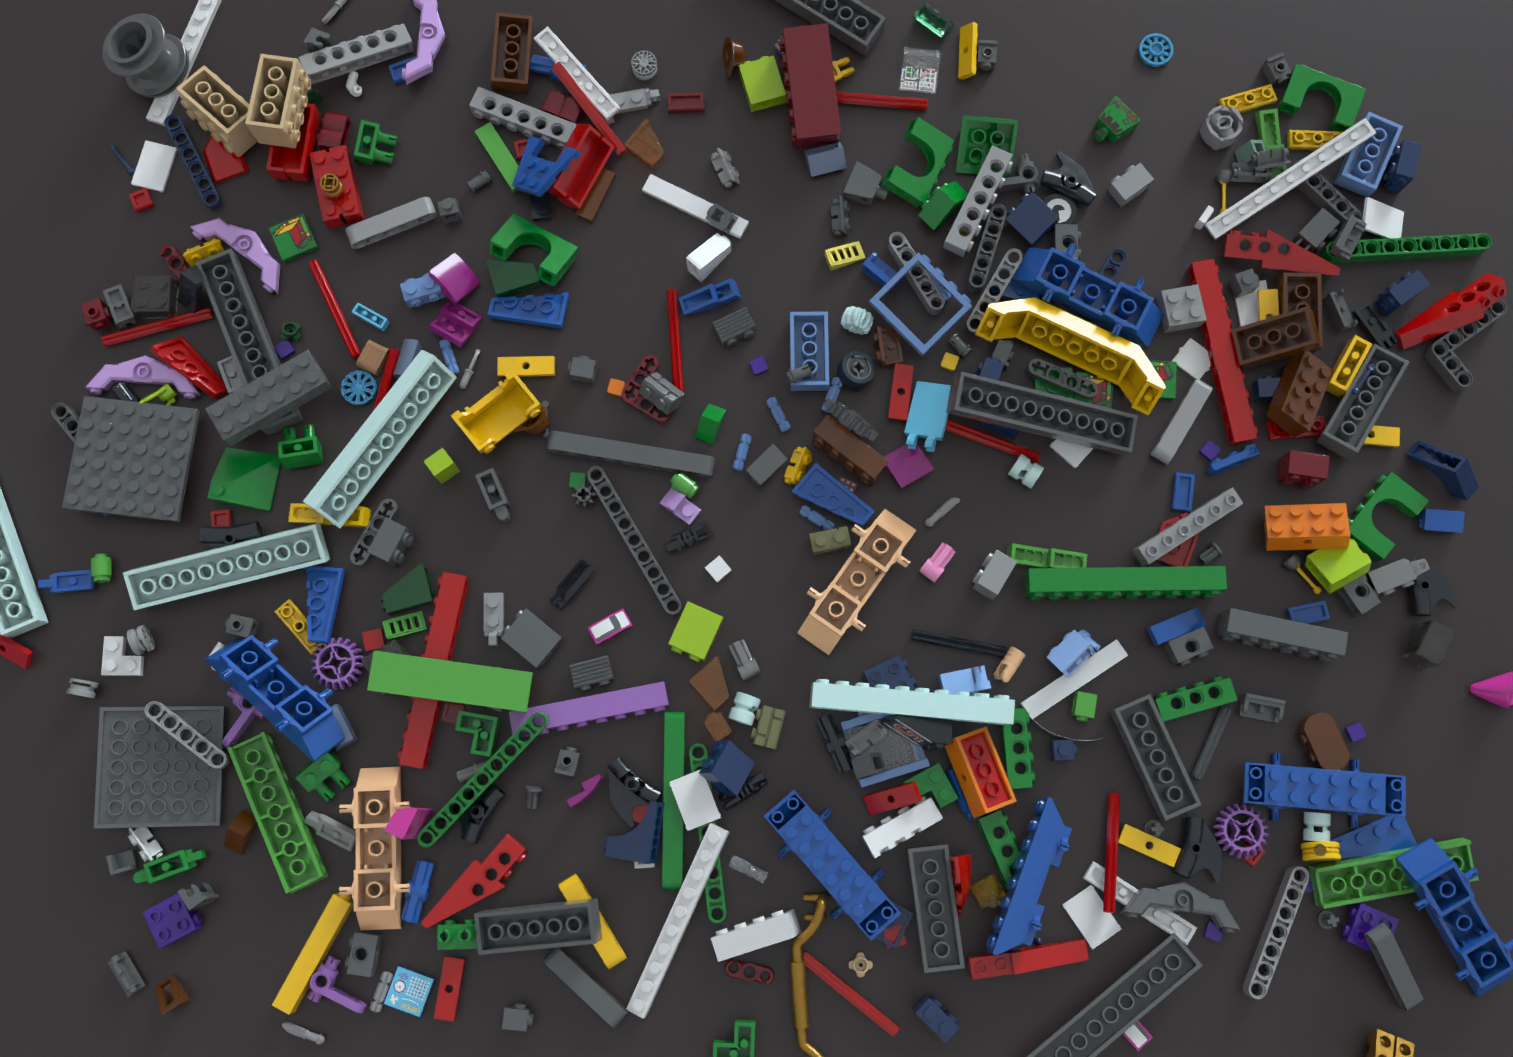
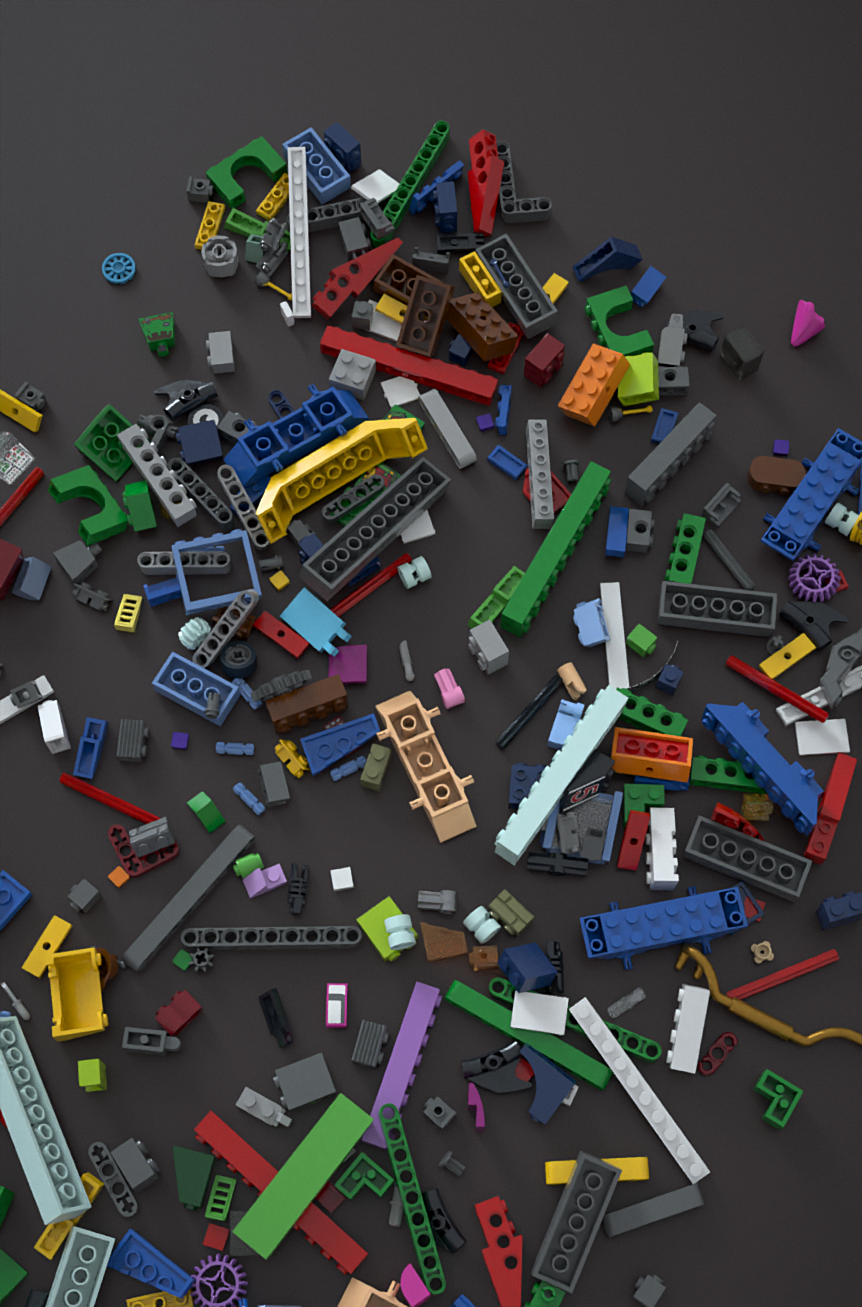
camera: 60 degrees left, 10 degrees down
(531, 503) = (178, 1013): none -> dark red brick
(694, 643) = (399, 931): none -> light aqua wheel
(881, 344) = (232, 622): none -> light grey beam
(1391, 266) = (420, 200): none -> blue wing

